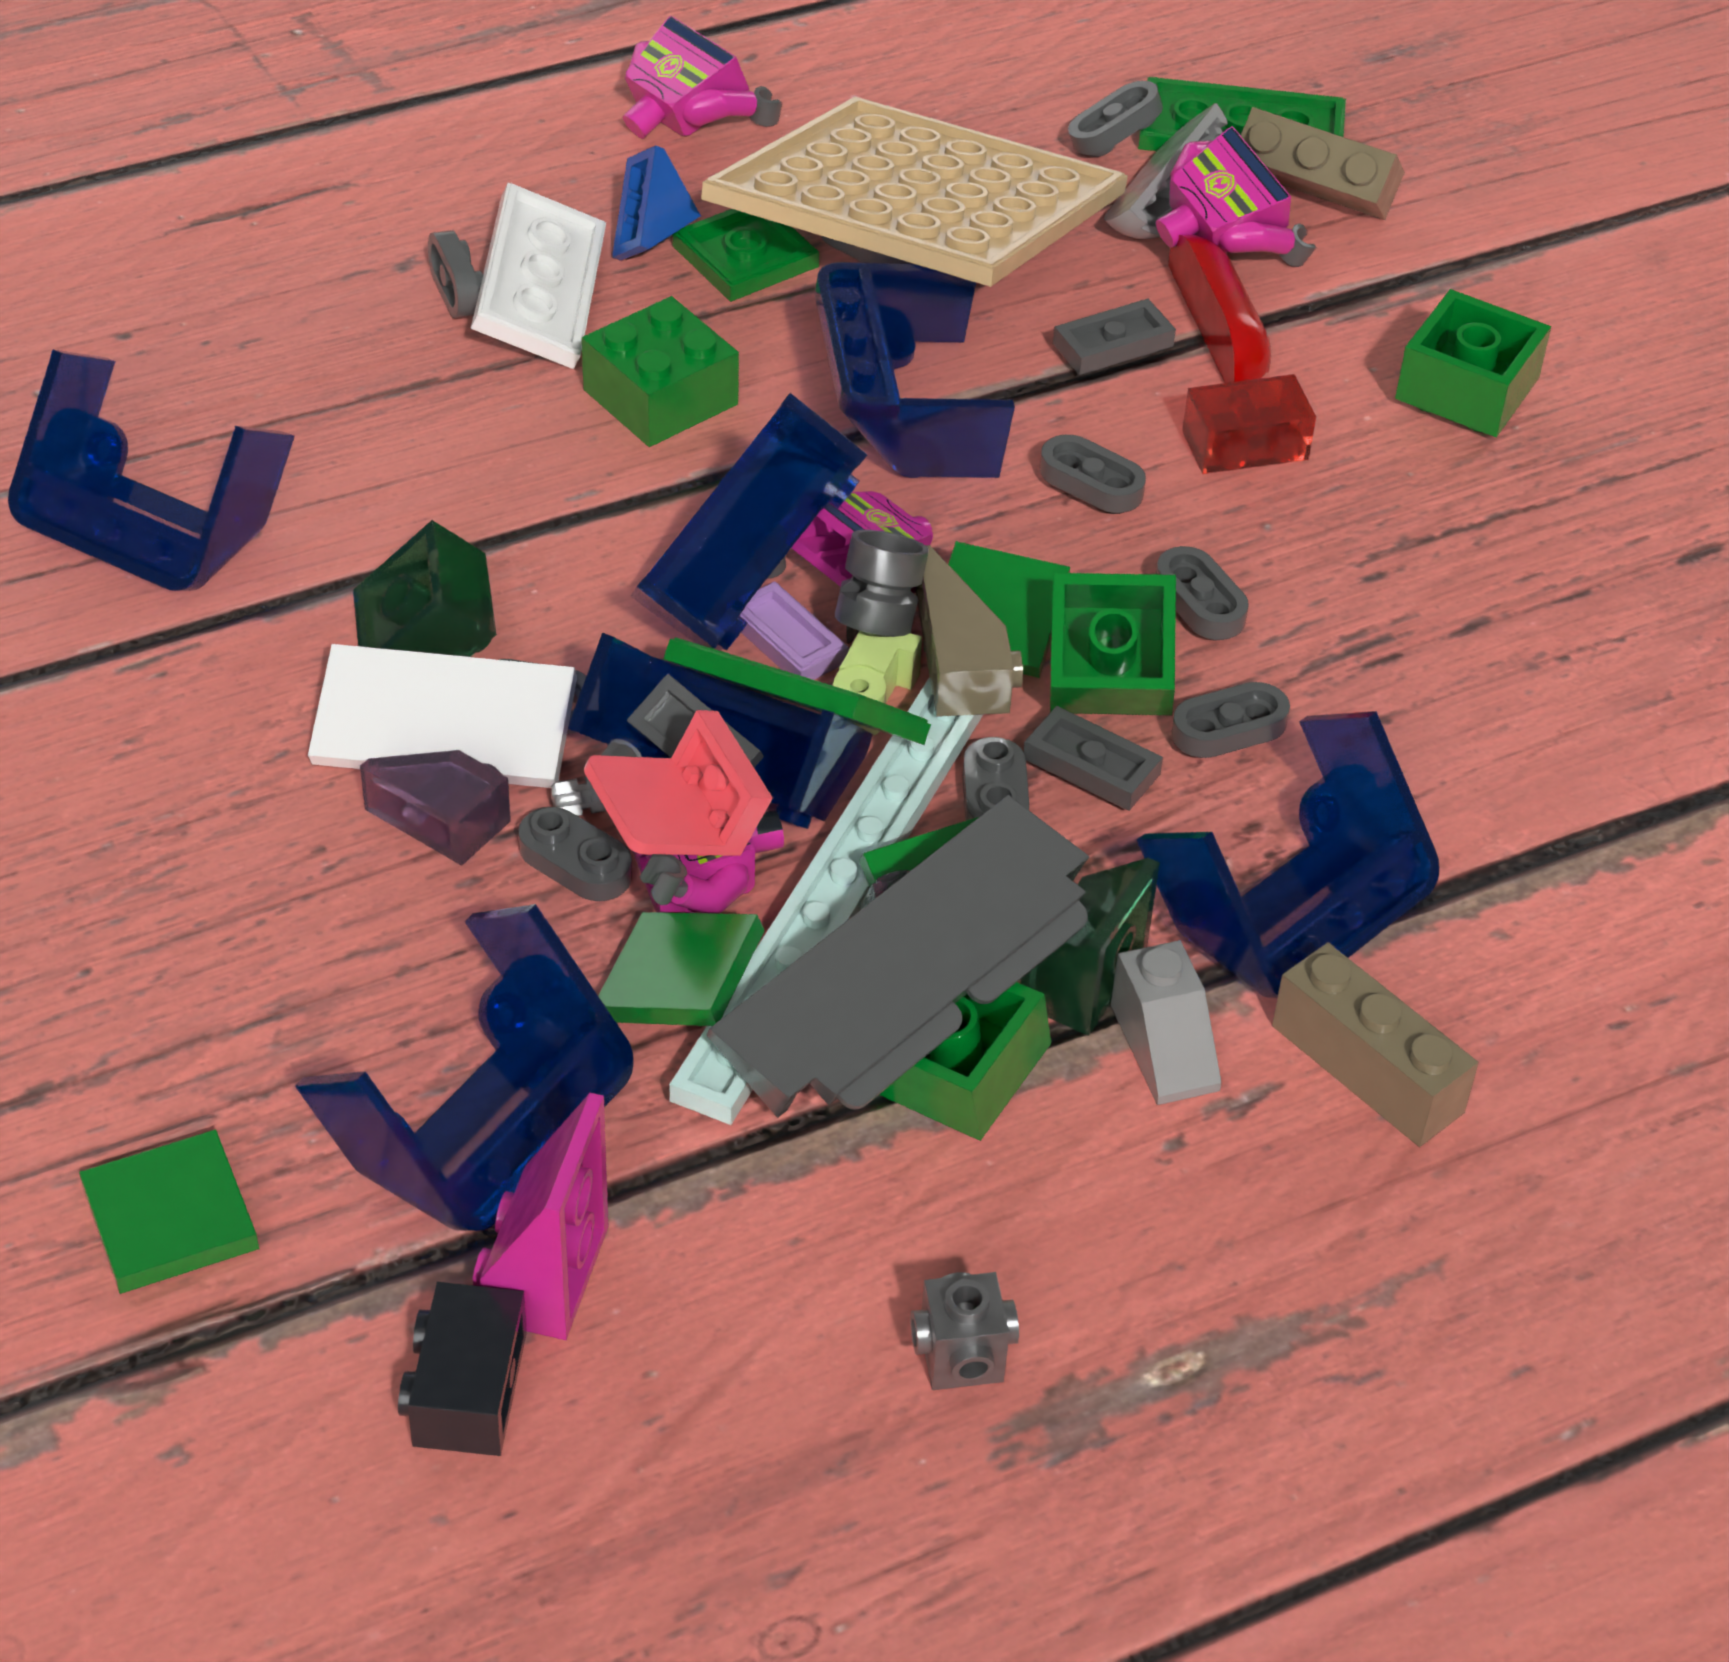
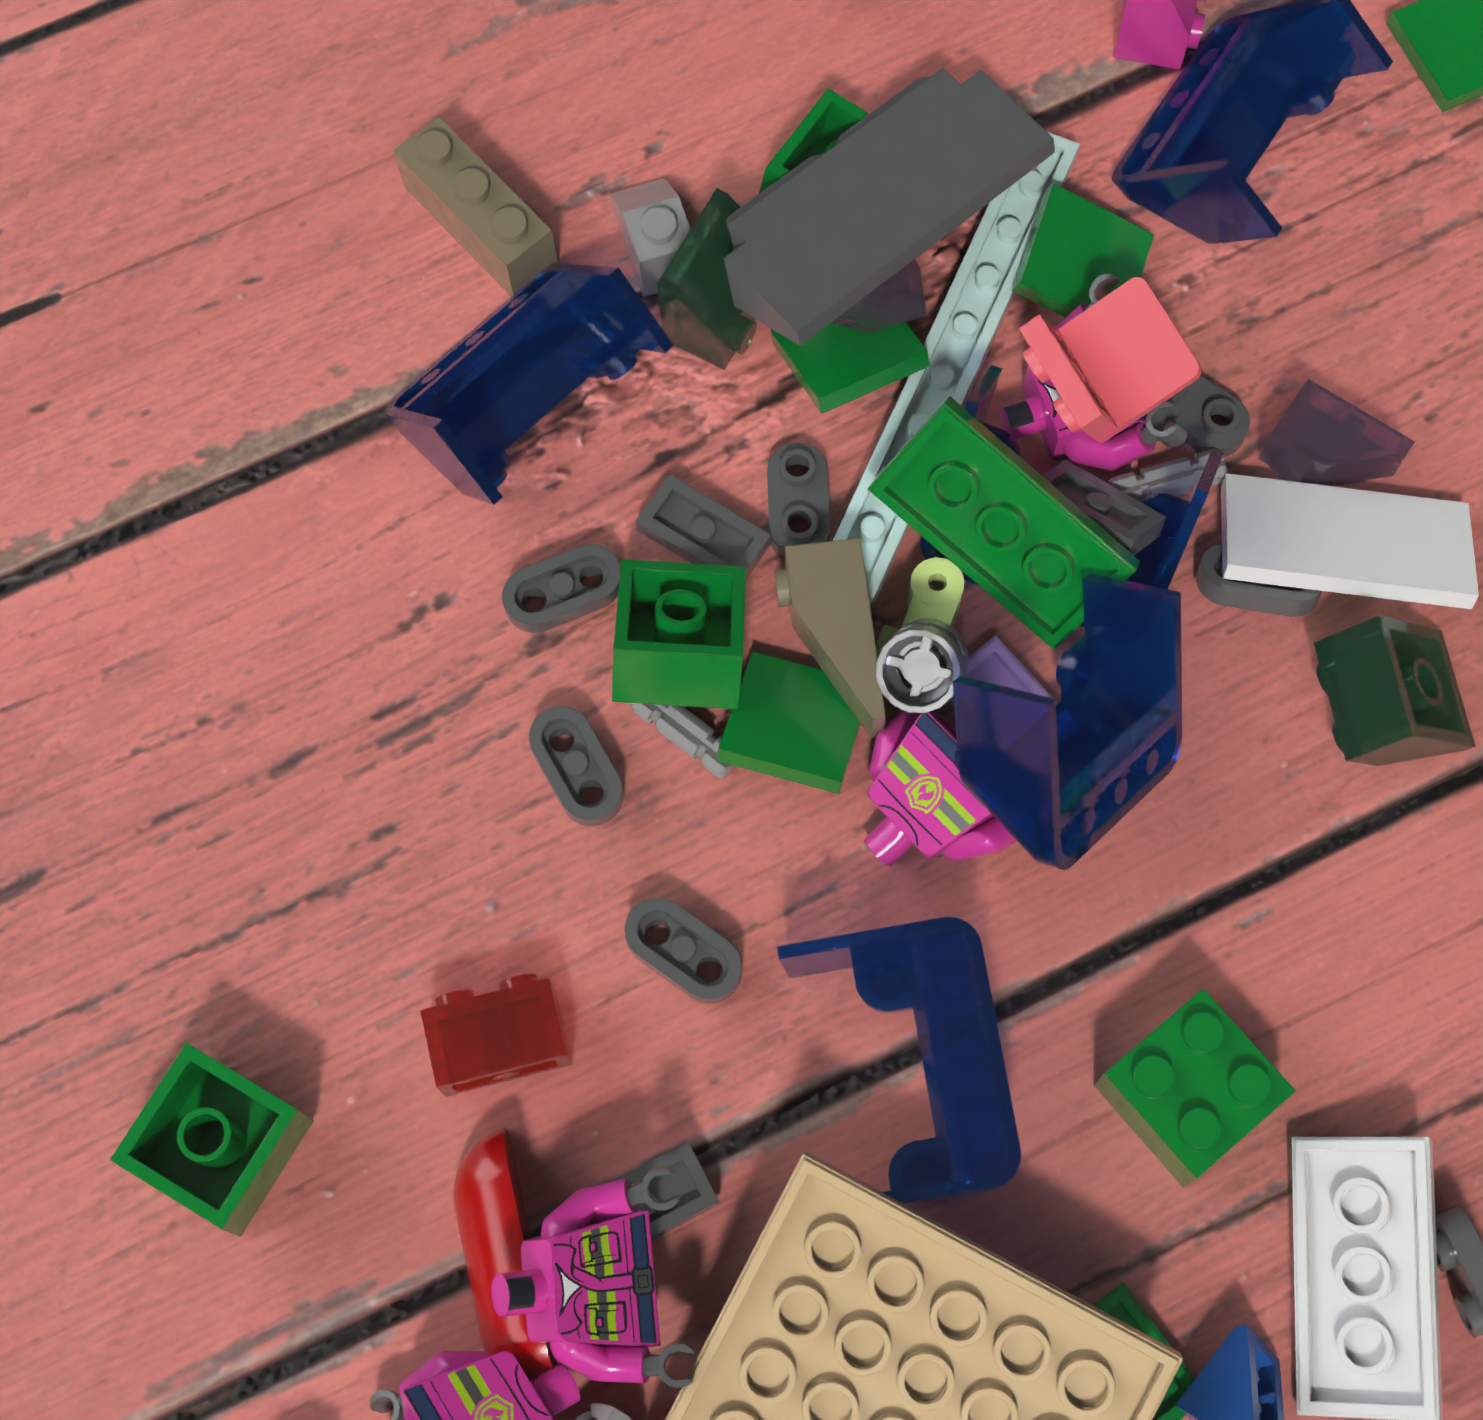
camera: 175 degrees left, 25 degrees up
(1147, 248) = (593, 1284): none -> dark pink torso

